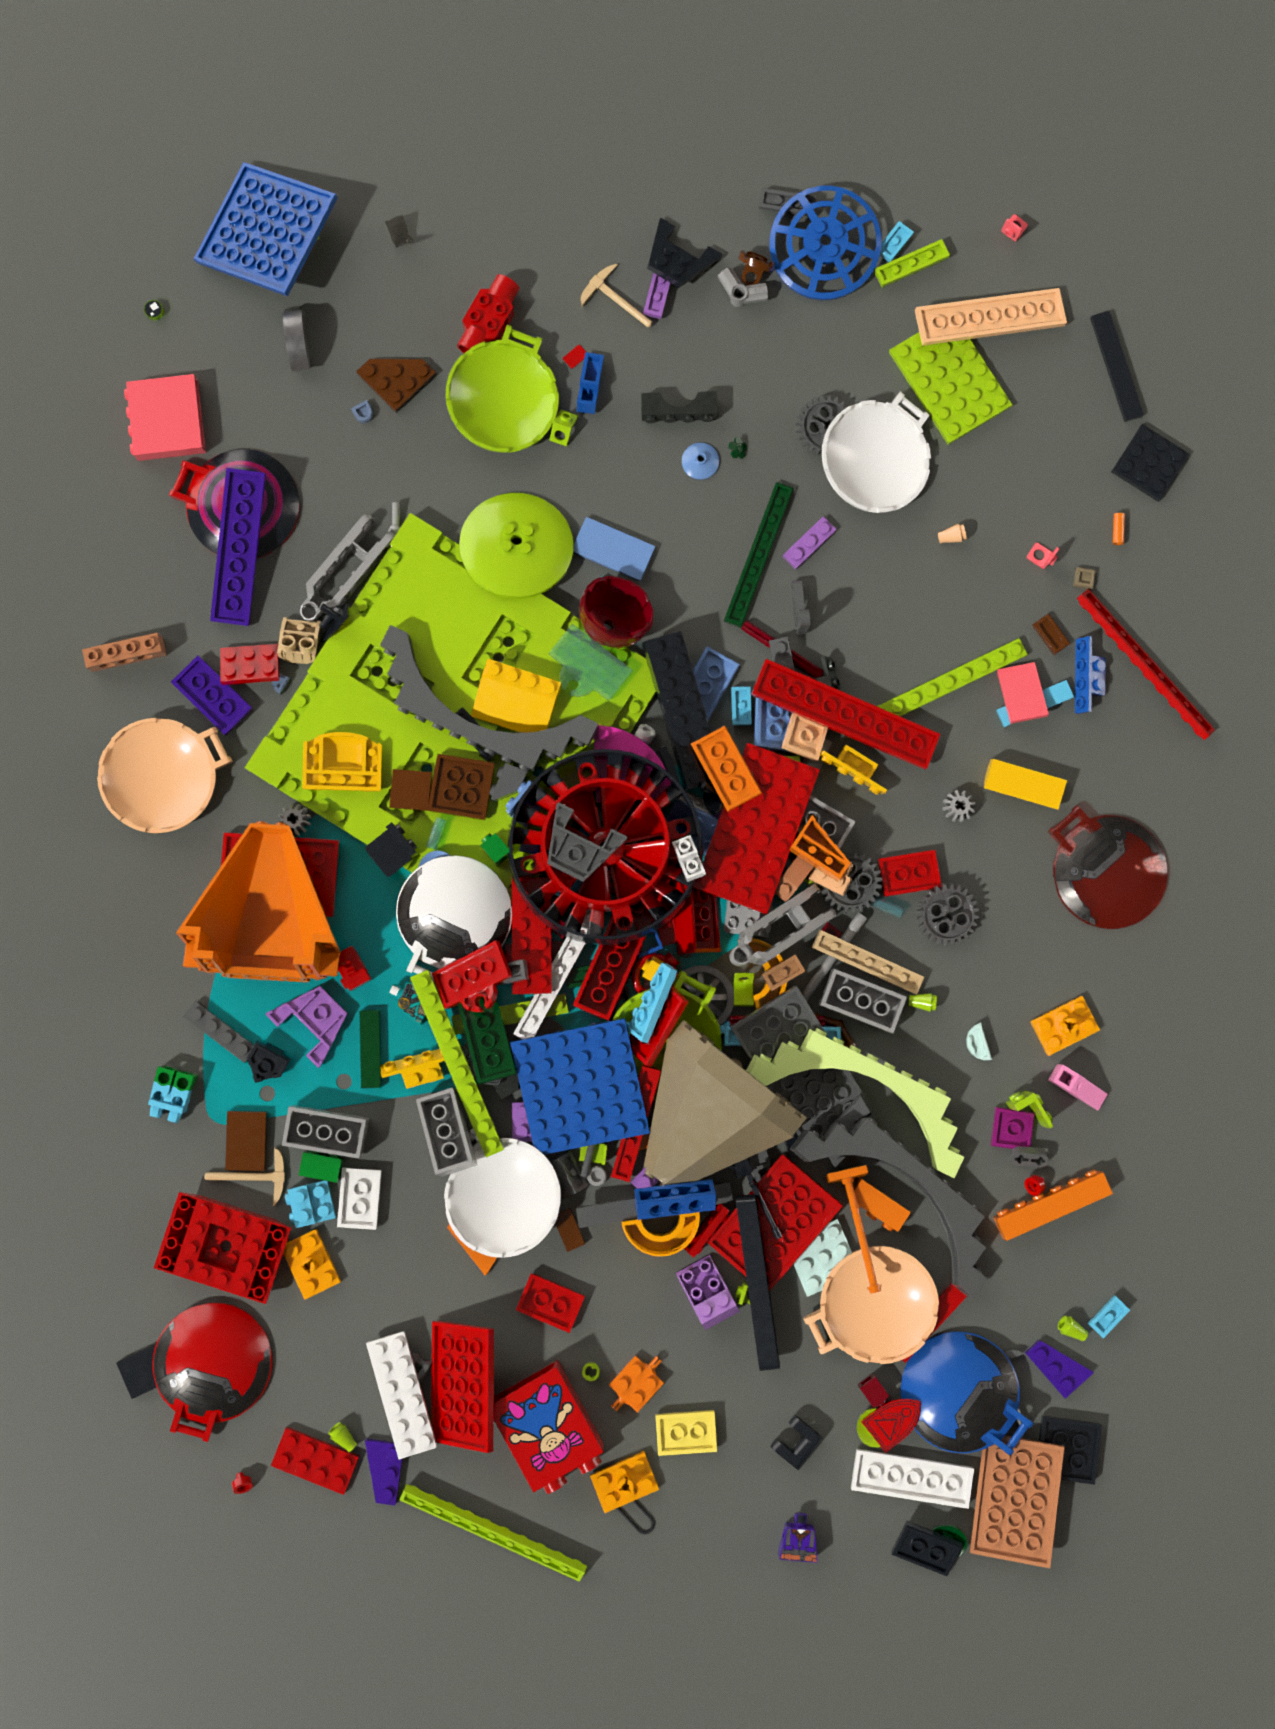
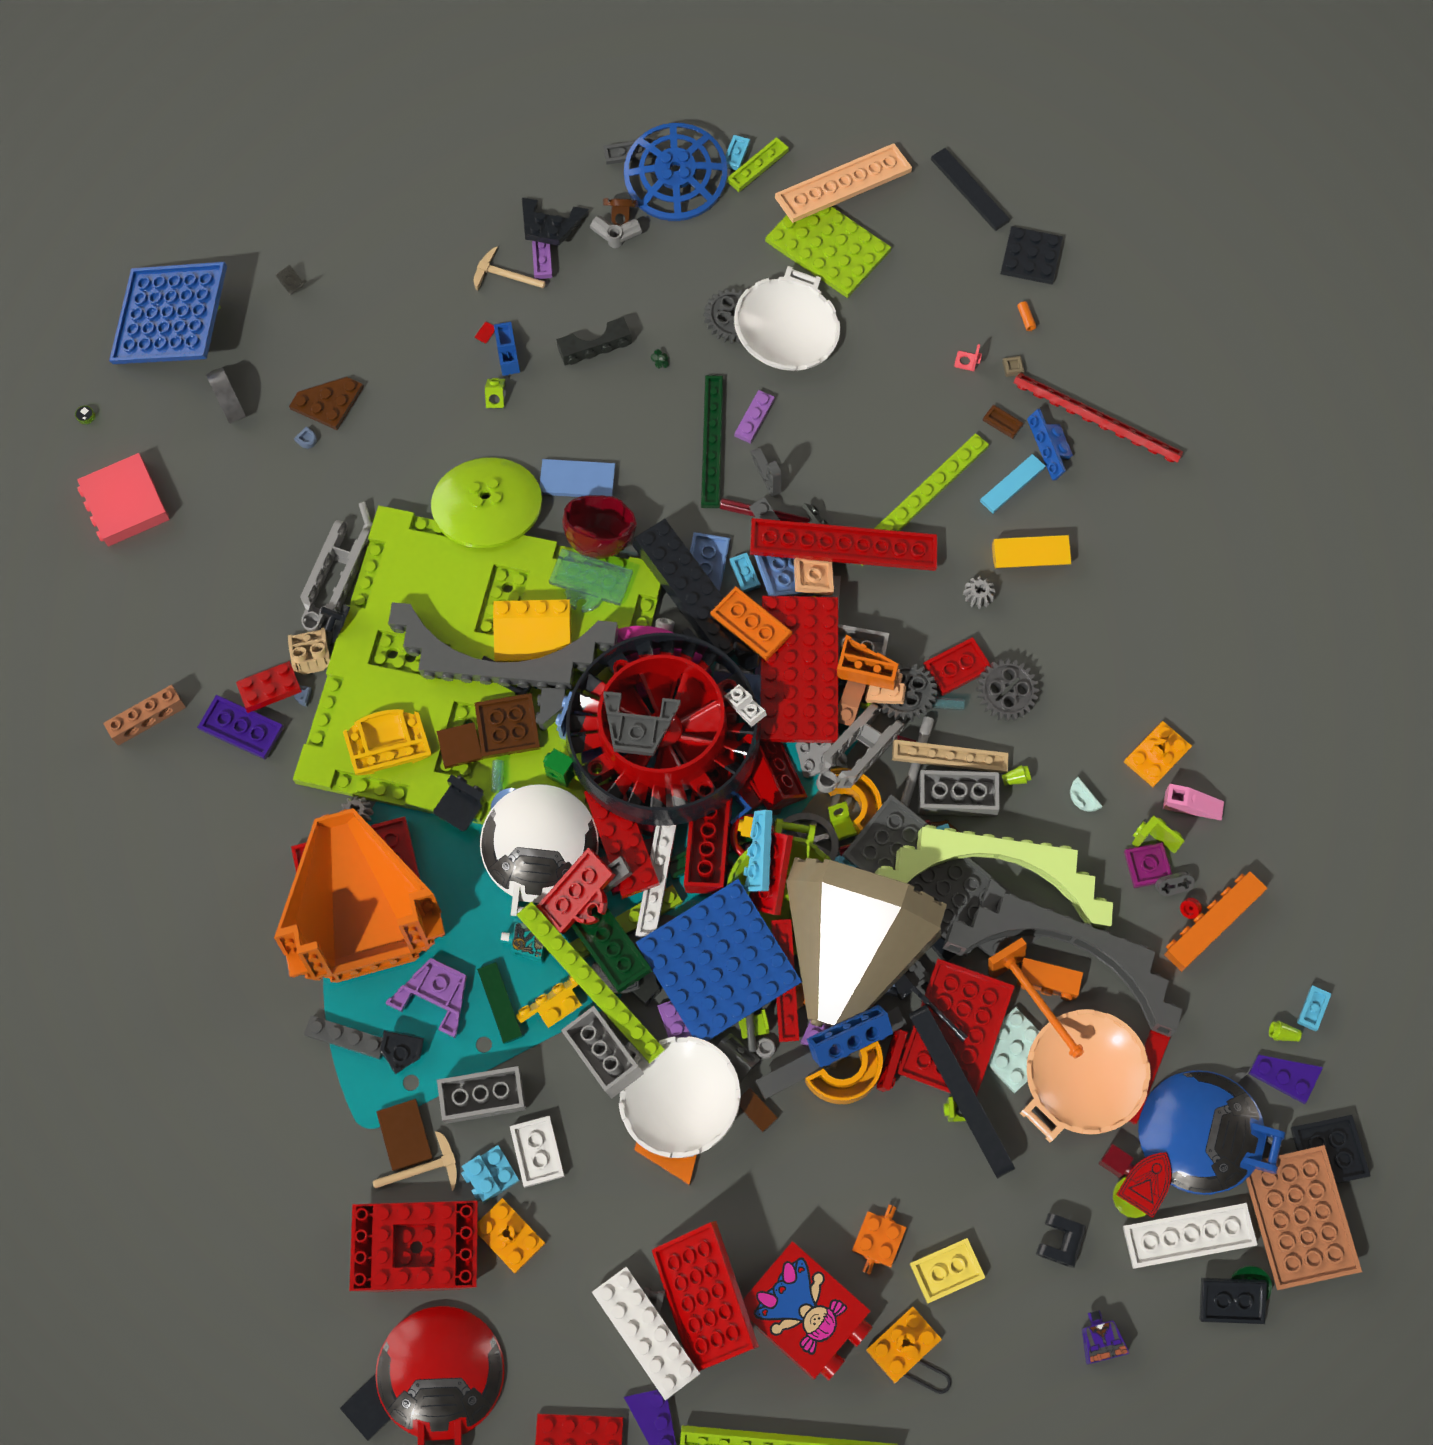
camera: 10 degrees left, 15 degrees down
(159, 774) = (211, 812): light nougat dish -> none
(171, 1092) = (314, 1111): medium azure hips -> none
(206, 494) = (215, 552): dish -> none
(238, 546) = (225, 586): dark purple plate -> none
(321, 1166) = (488, 1132): green brick -> none
(342, 1436) = (599, 1401): lime cone -> none
(352, 969) = (458, 932): red brick -> none
(489, 313) = (395, 323): red brick -> none
(502, 394) = (430, 379): lime dish -> none
(550, 1302) = (763, 1188): red plate -> none
(594, 1366) = (828, 1250): lime bush -> none
(697, 469) = (633, 387): medium blue dish -> none
(707, 1292) = (916, 1122): medium lavender slope -> none
(783, 972) = (873, 788): medium nougat plate -> none
(856, 765) = (870, 588): yellow bracket -> none
(953, 534) = (882, 366): light nougat cone -> none
(1012, 230) = (835, 110): coral bracket -> none
(1022, 693) = (997, 477): coral tile -> none
(1108, 869) = (1139, 603): clear red dish -> none

